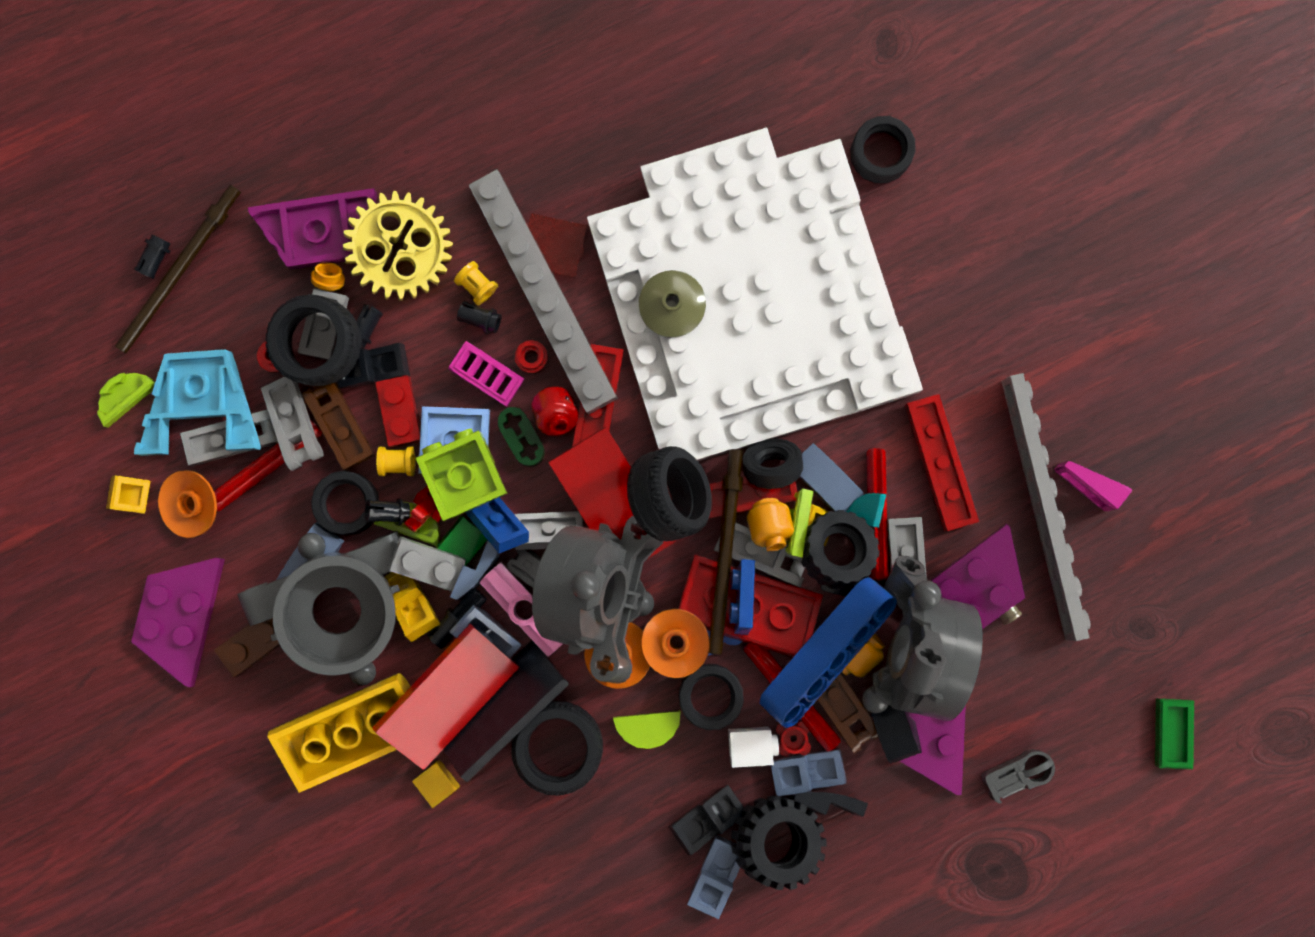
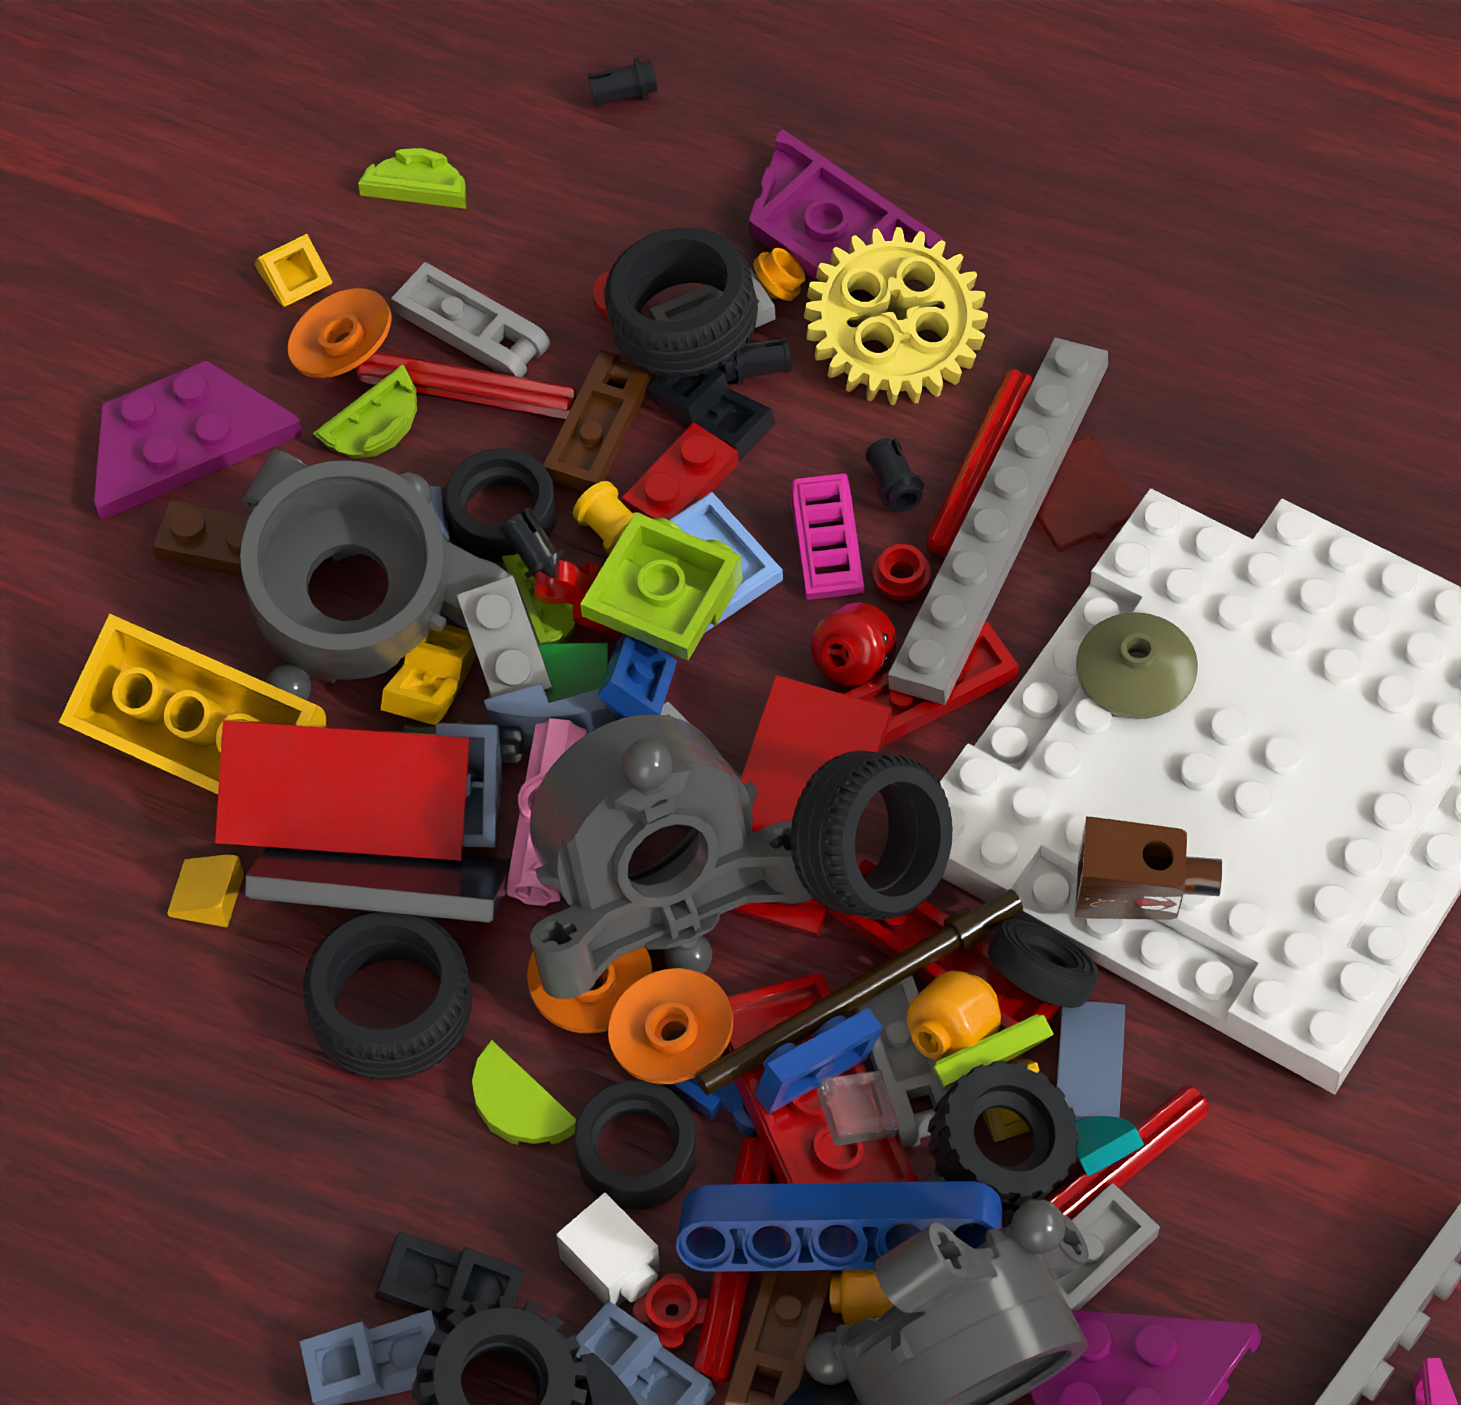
camera: 55 degrees right, 25 degrees down
(198, 387) = (496, 237): medium azure wing -> none
(216, 216) = (739, 111): dark brown bar -> none
(249, 523) = (373, 420): none -> lime tile
(291, 422) = (551, 362): light grey plate -> none
(475, 283) = (935, 437): yellow bush -> none
(504, 273) = (978, 461): none -> red axle
(527, 432) = (770, 637): dark green beam -> none
(771, 406) = (1139, 871): none -> reddish brown torso
(773, 594) = (857, 1108): none -> clear tile
(941, 463) = (1264, 1201): red plate -> none

